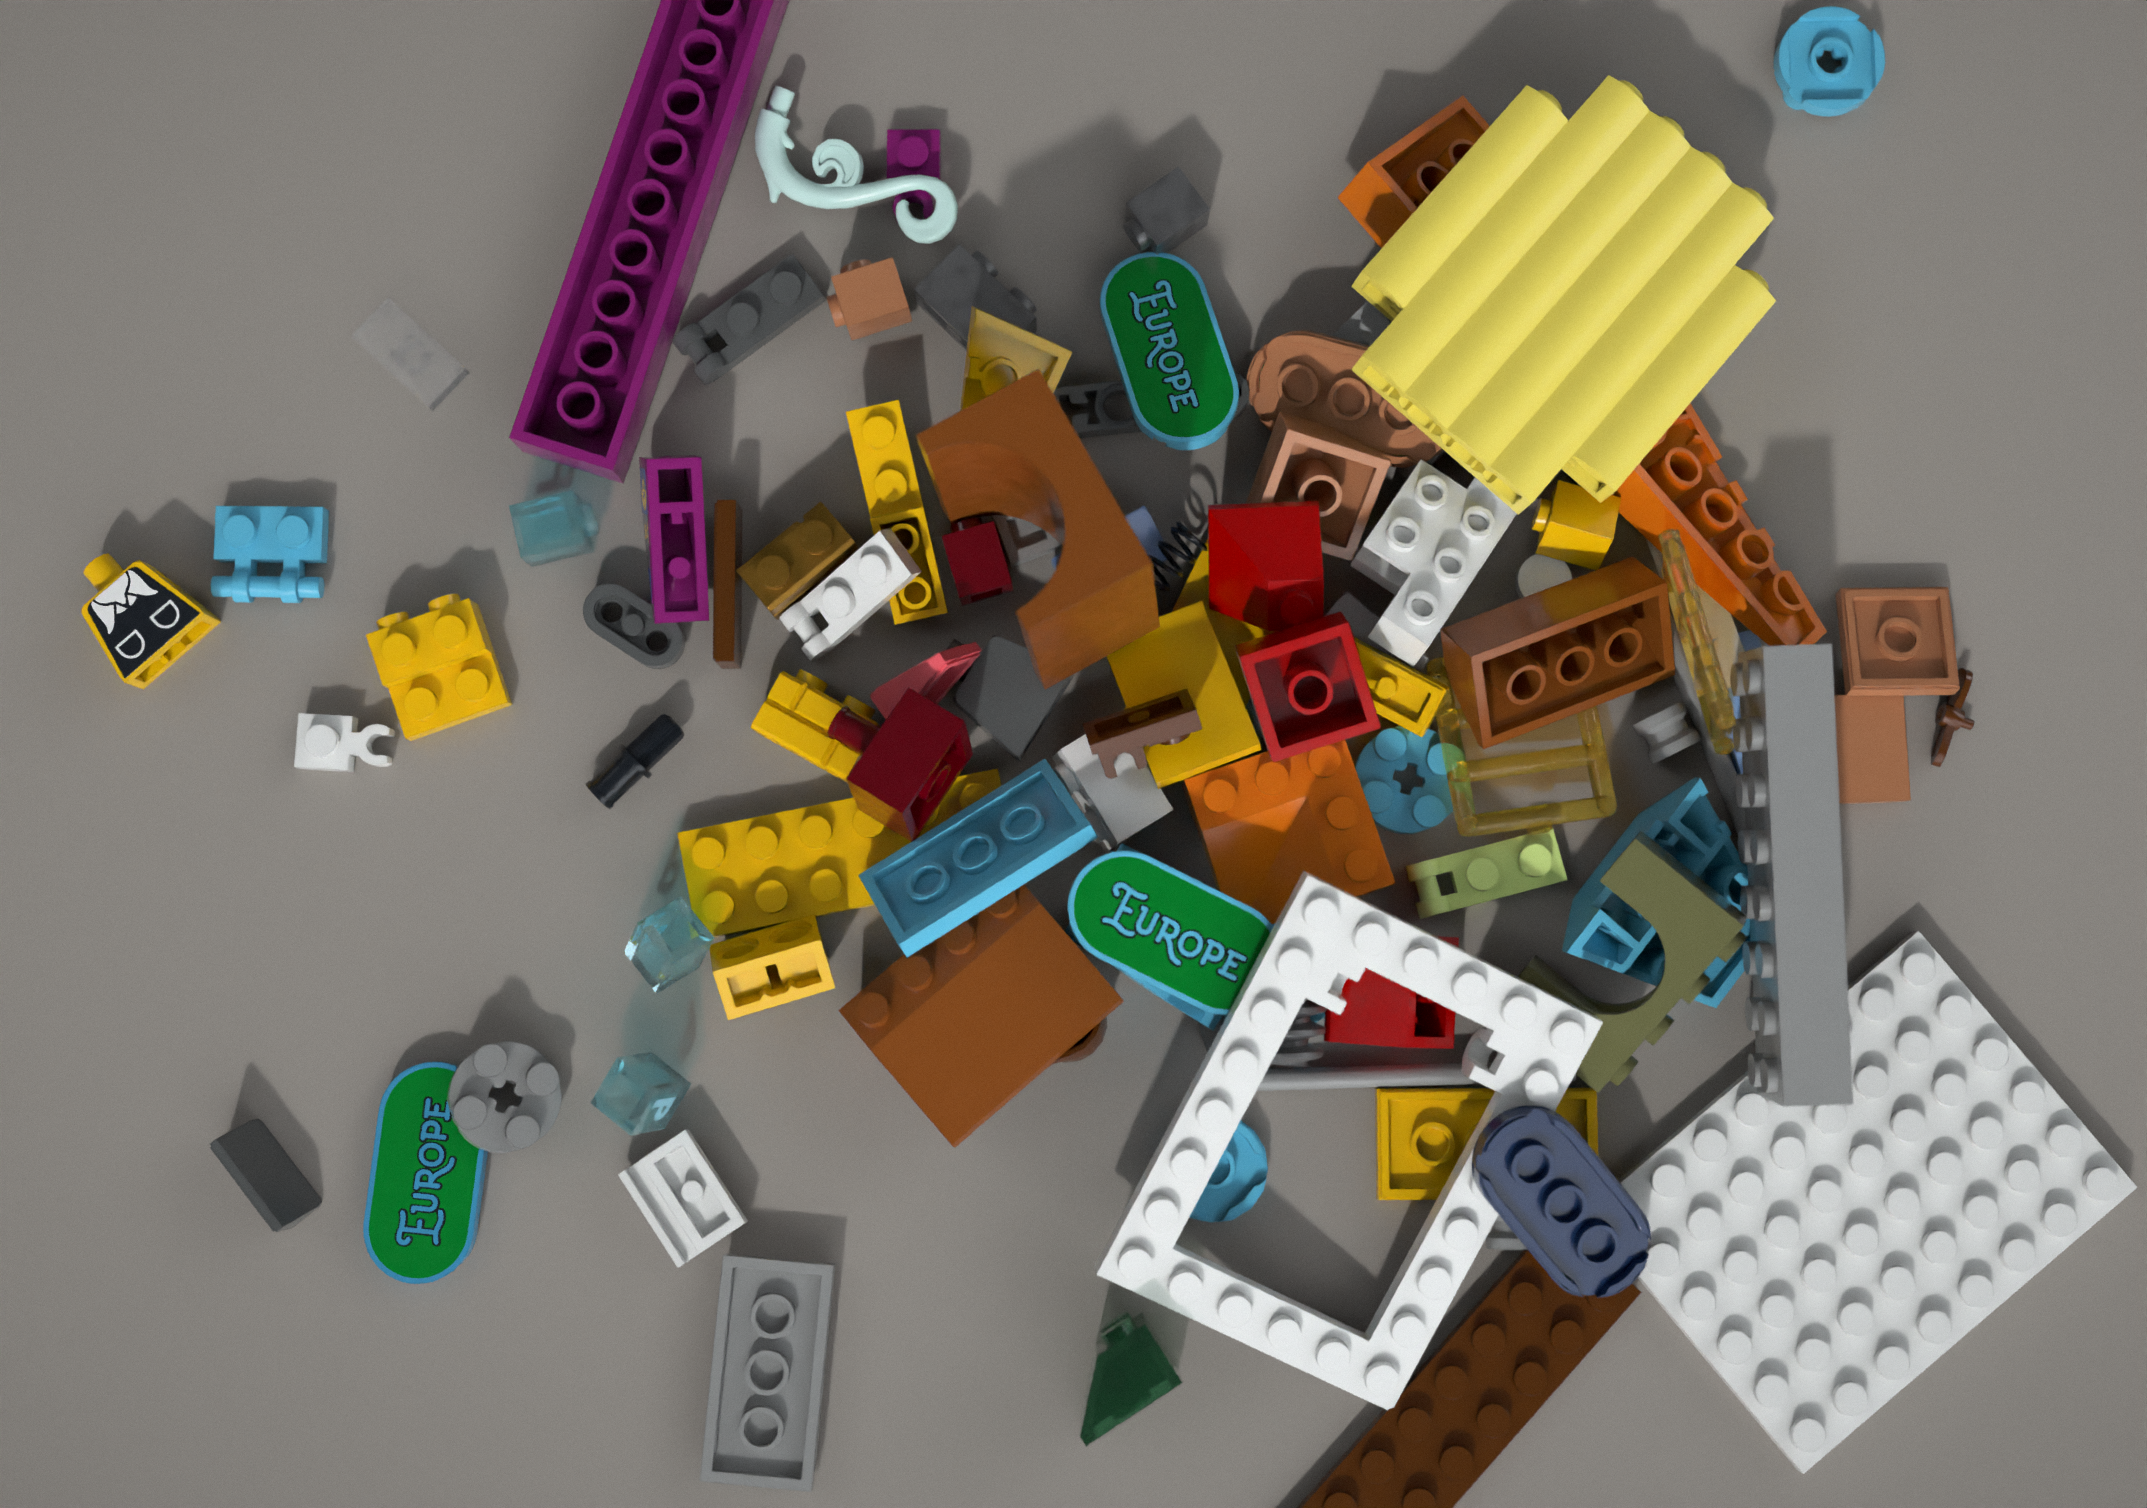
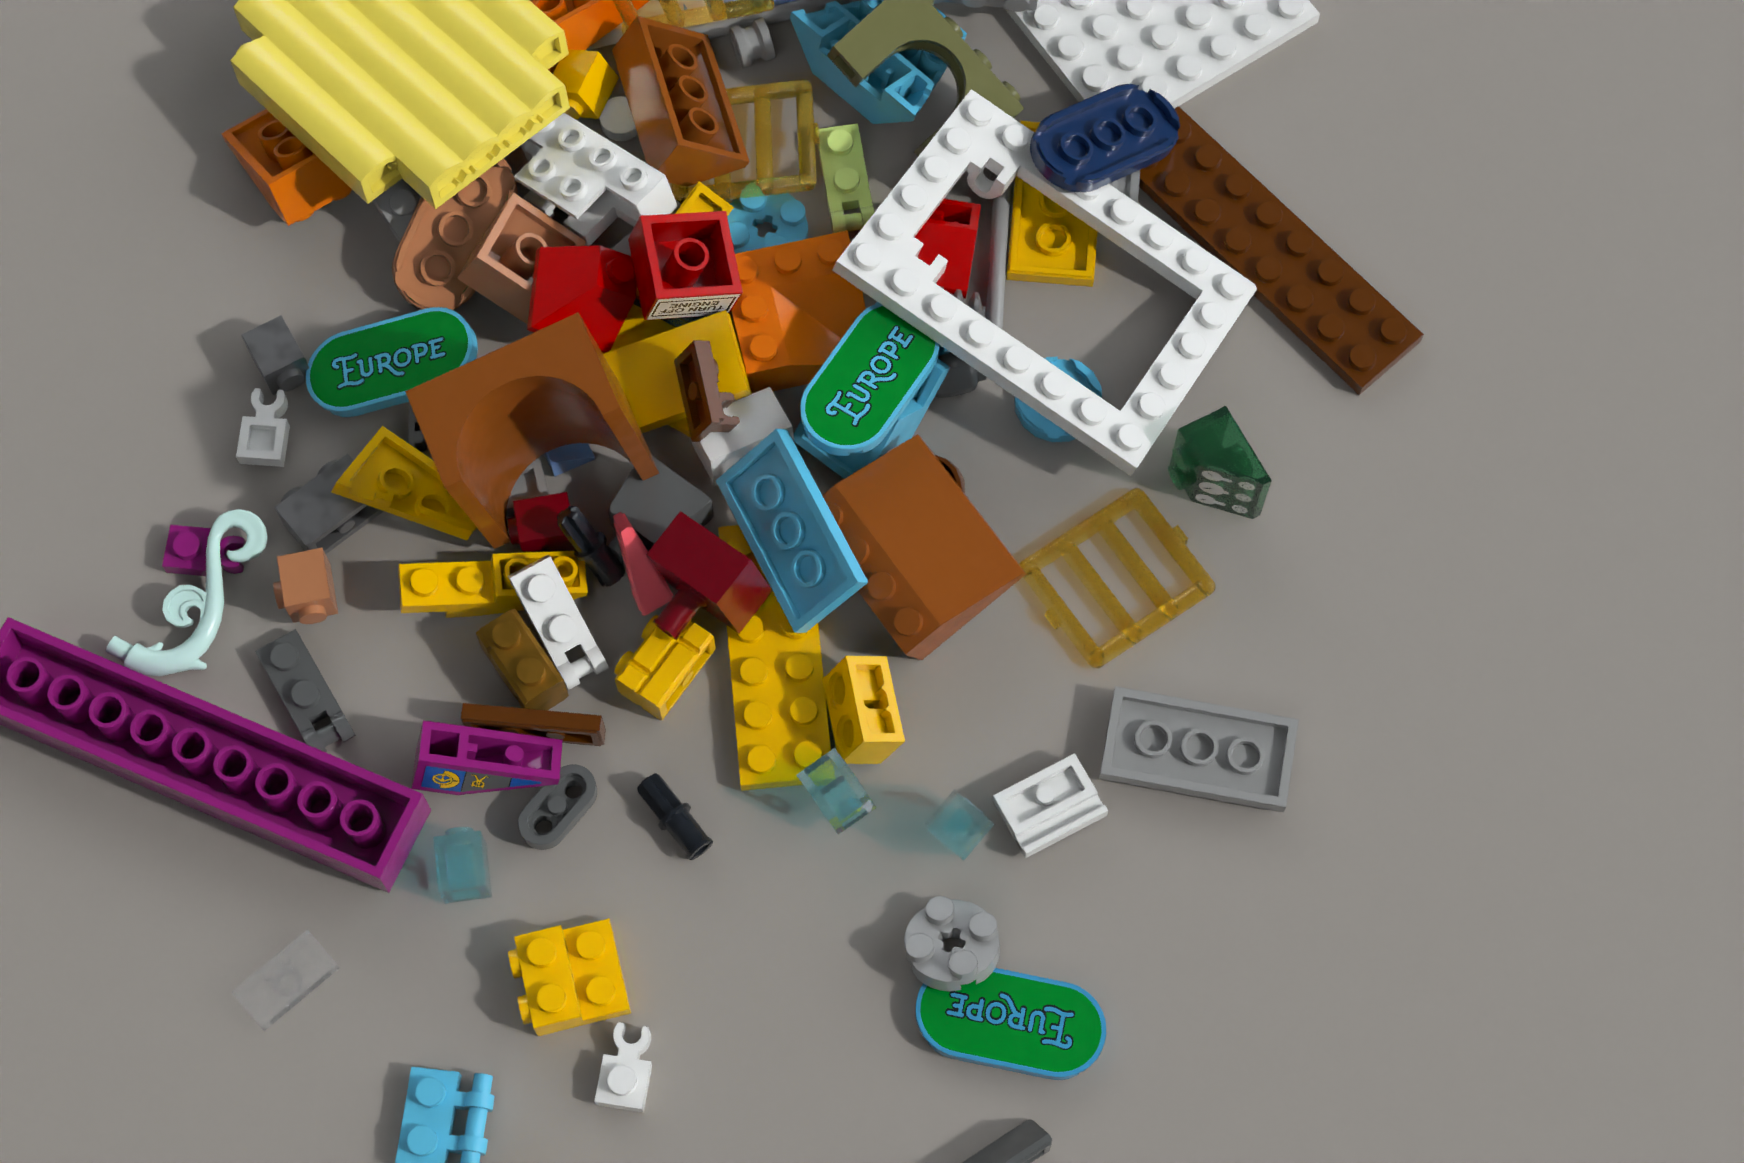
camera: 85 degrees left, 15 degrees down
(914, 1278) = (1130, 632): none -> clear yellow bar
(946, 618) = (590, 546): none -> black axle
(1060, 216) = (266, 435): none -> white plate

